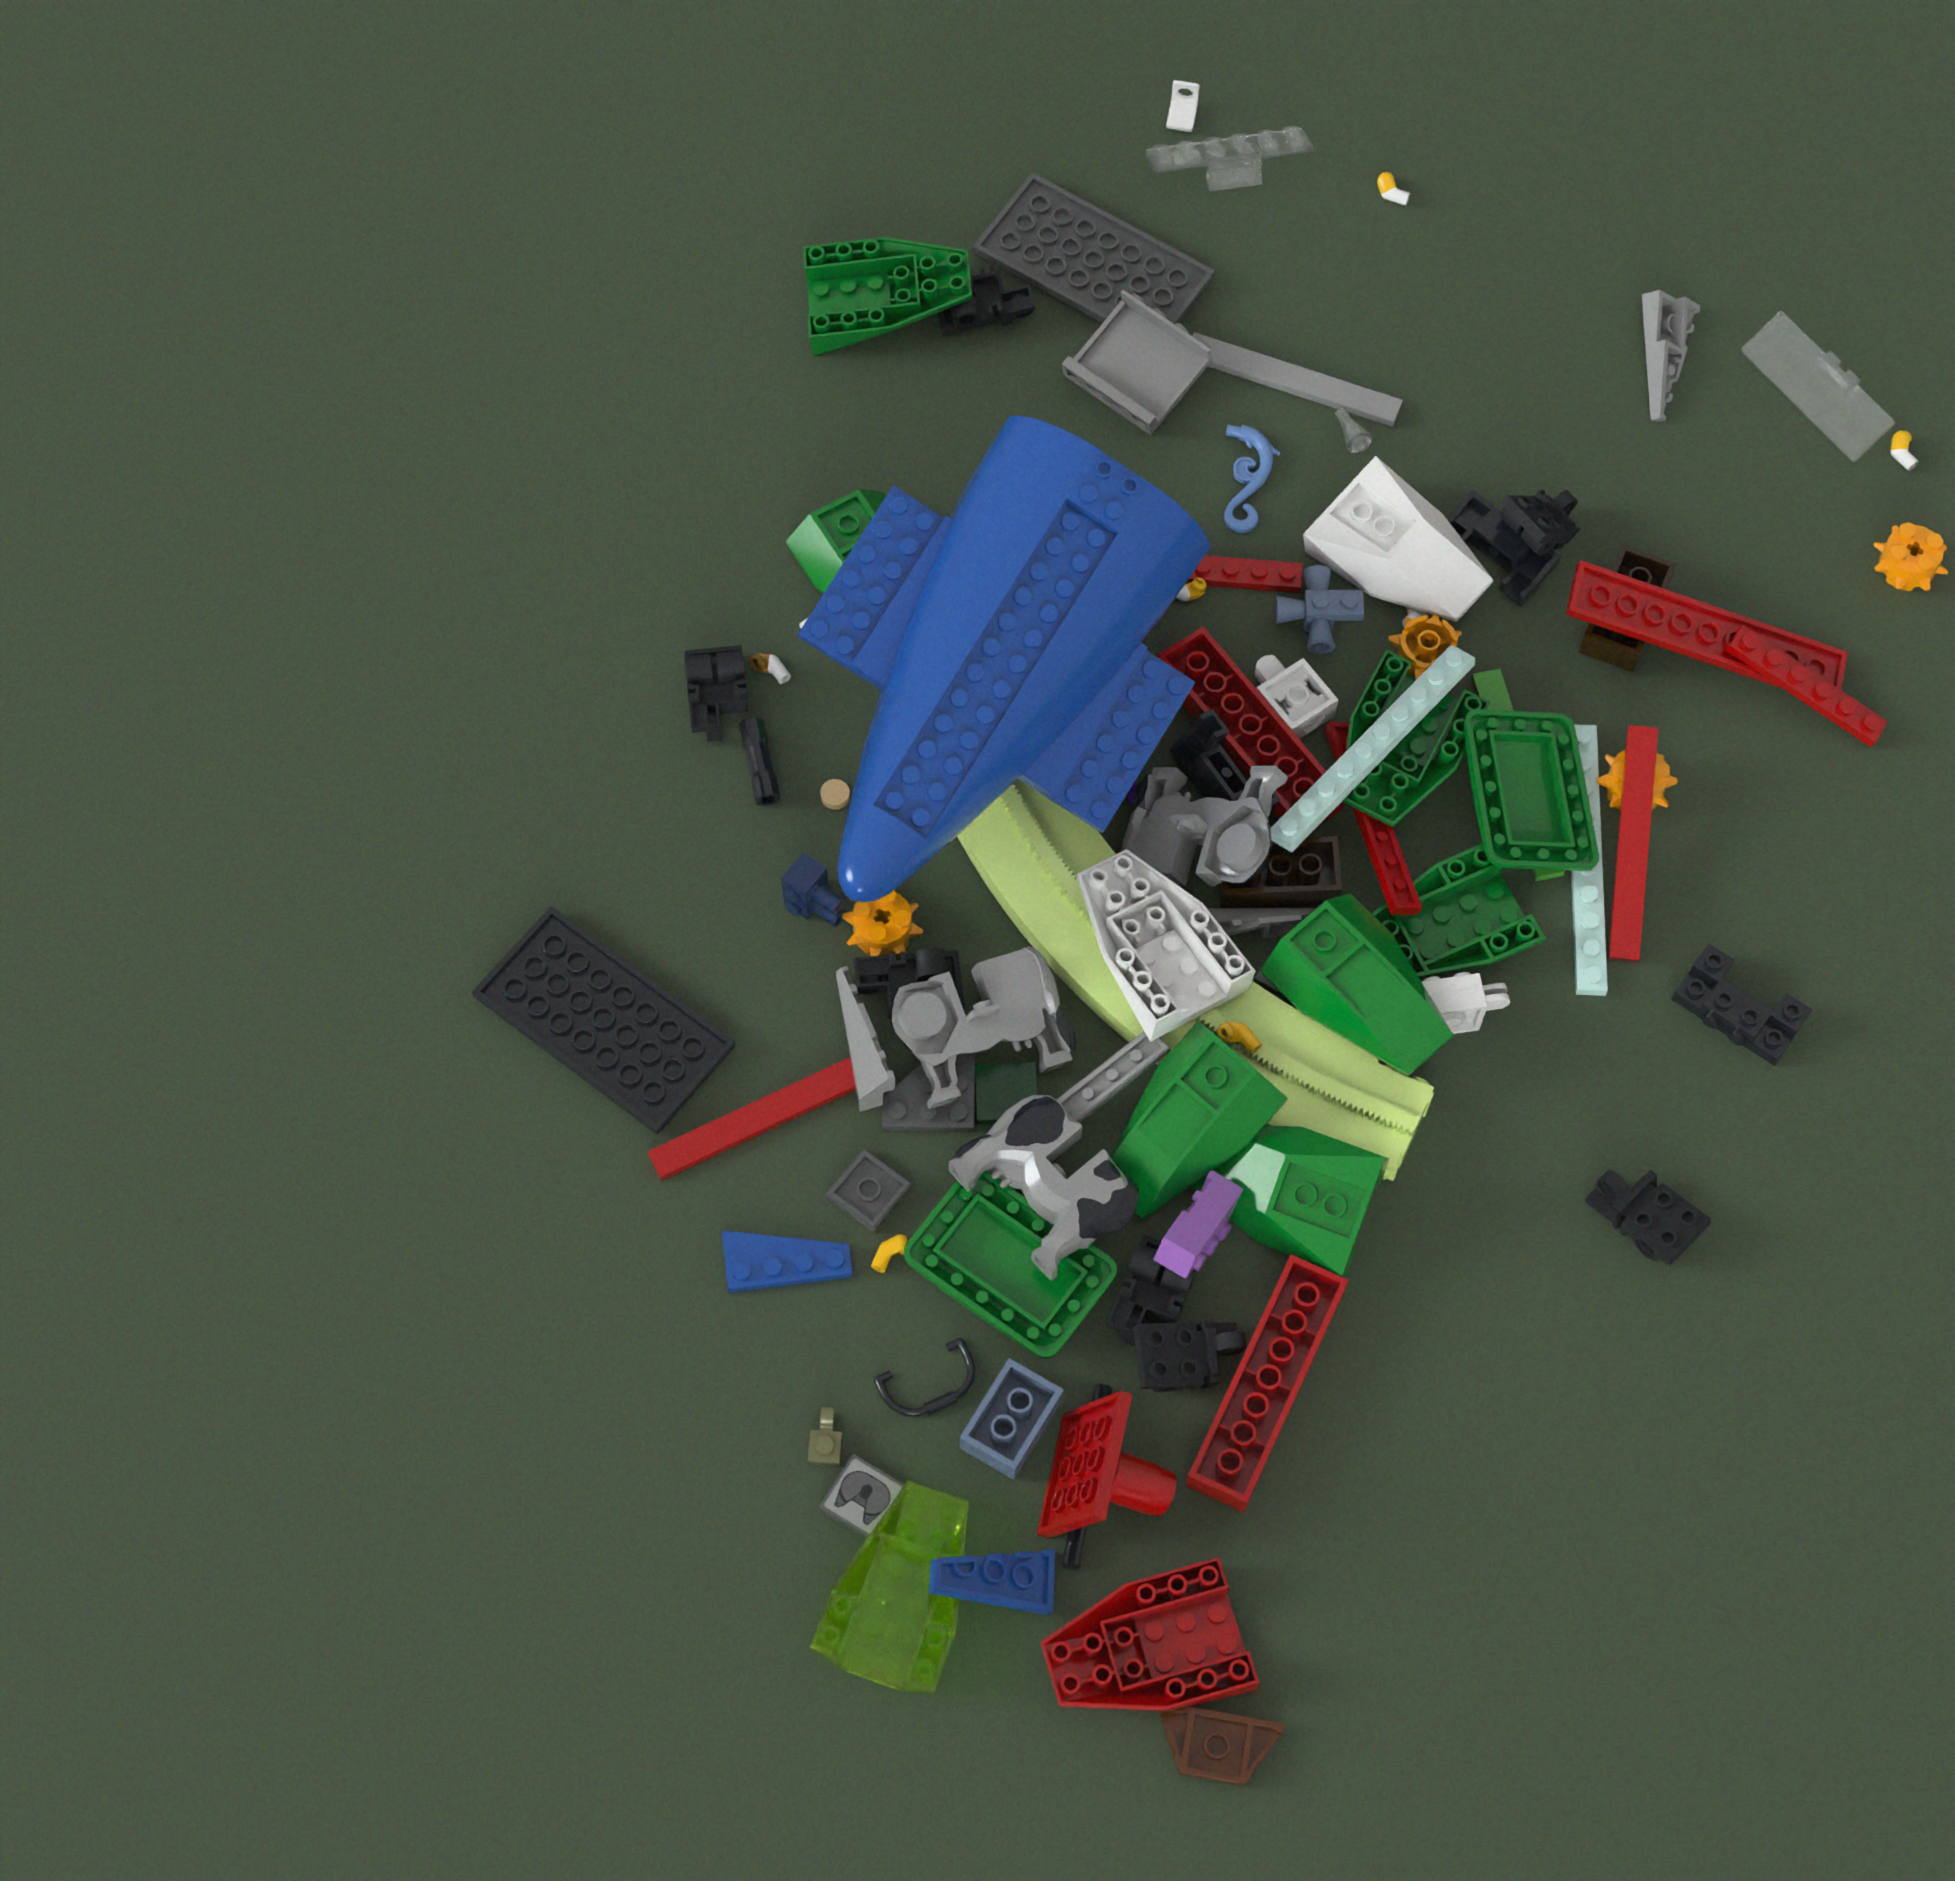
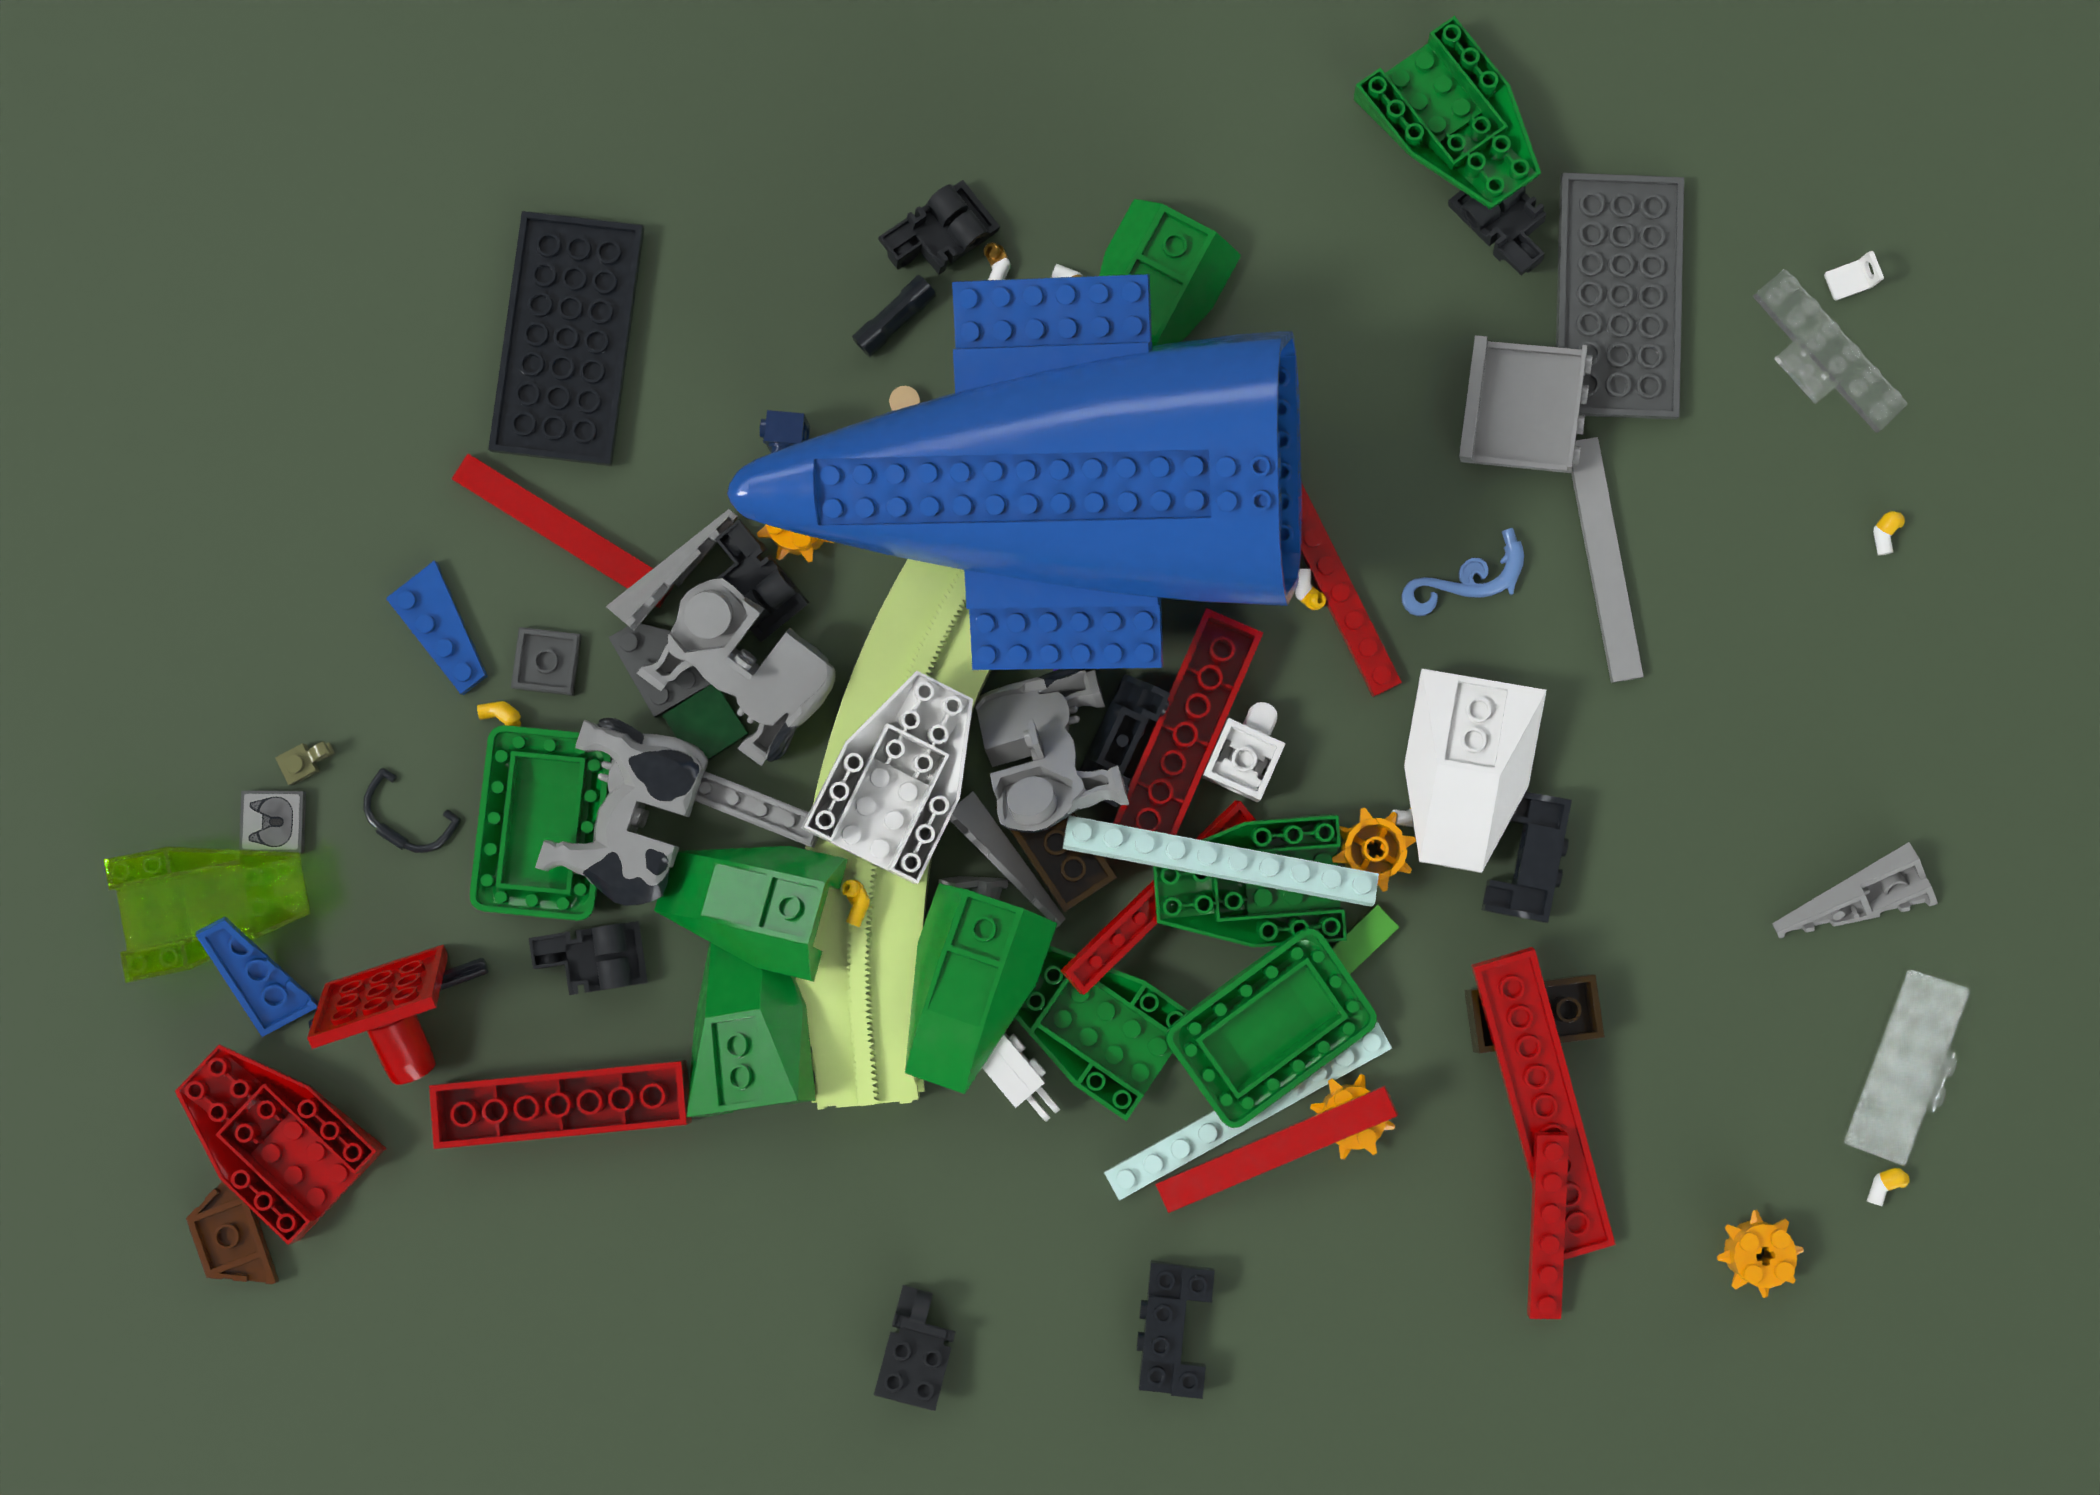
camera: 60 degrees right, 20 degrees up
(1011, 1419) = (402, 906): sand blue brick -> none
(1184, 1353) = (544, 1017): black plate -> none
(1200, 1227) = (657, 968): medium lavender wedge -> none
(1320, 608) = (1357, 727): sand blue brick -> none
(1356, 437) = (1573, 655): clear cone -> none
(1541, 519) = (1576, 883): black plate -> none

